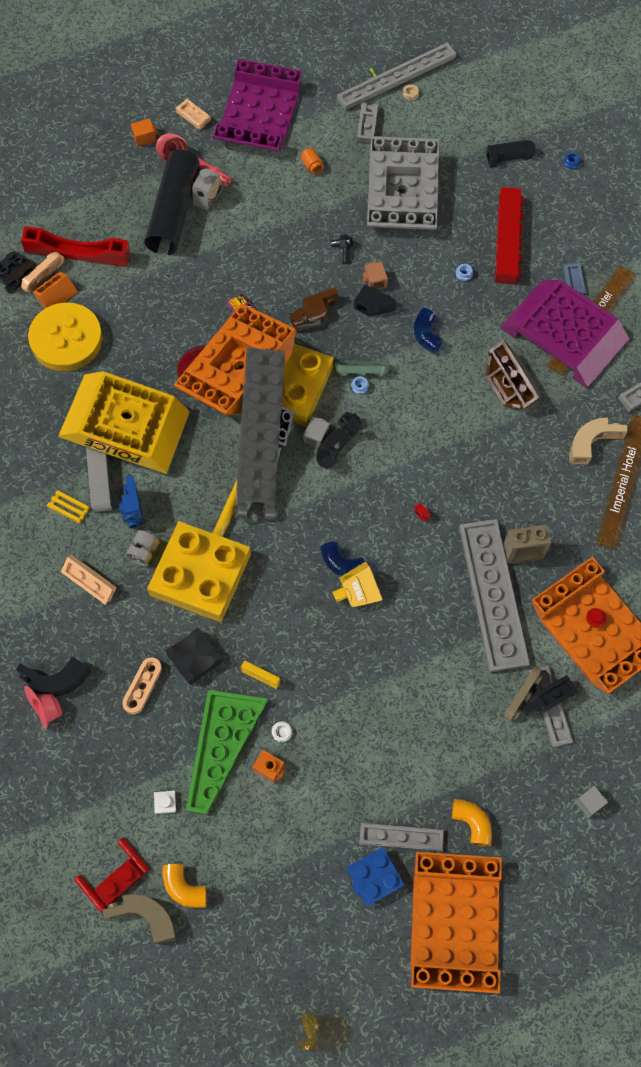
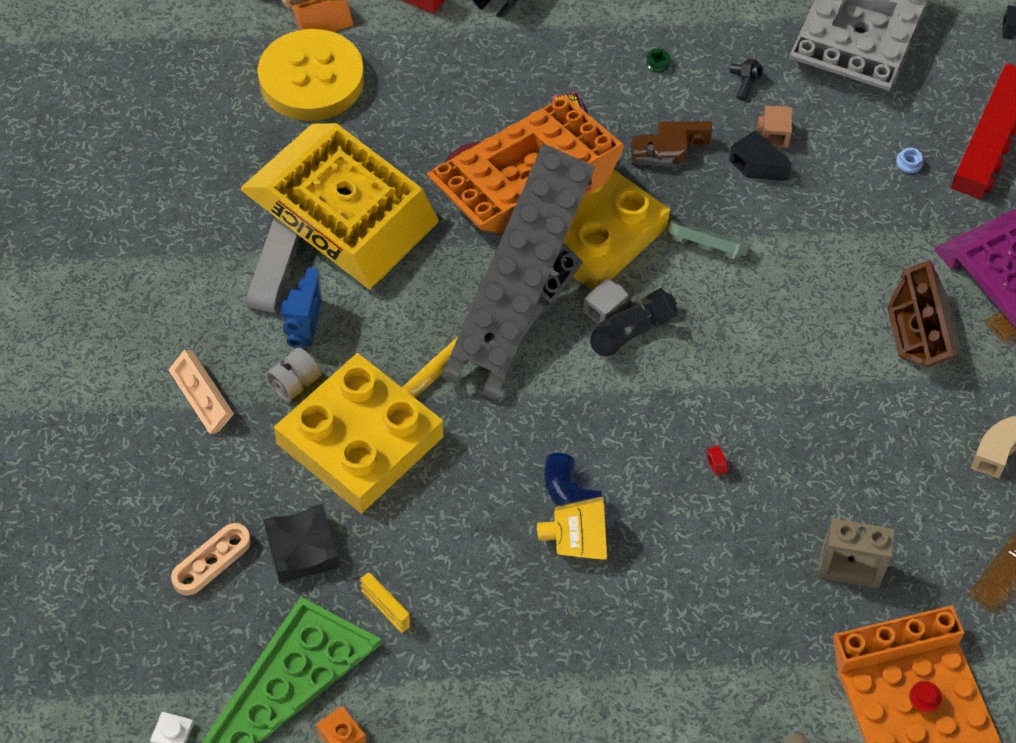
camera: 20 degrees right, 10 degrees down
(45, 706) = (65, 537): coral piece -> none
(55, 500) = (204, 275): yellow tile -> none
(62, 683) = (96, 515): black arch -> none
(280, 249) = (658, 67): none -> dark green bush
(281, 732) = (382, 695): white tile -> none
(360, 381) = (696, 255): light blue plate -> none
(423, 332) = (817, 220): clear blue cylinder -> none
(493, 596) = (779, 616): light grey plate -> none

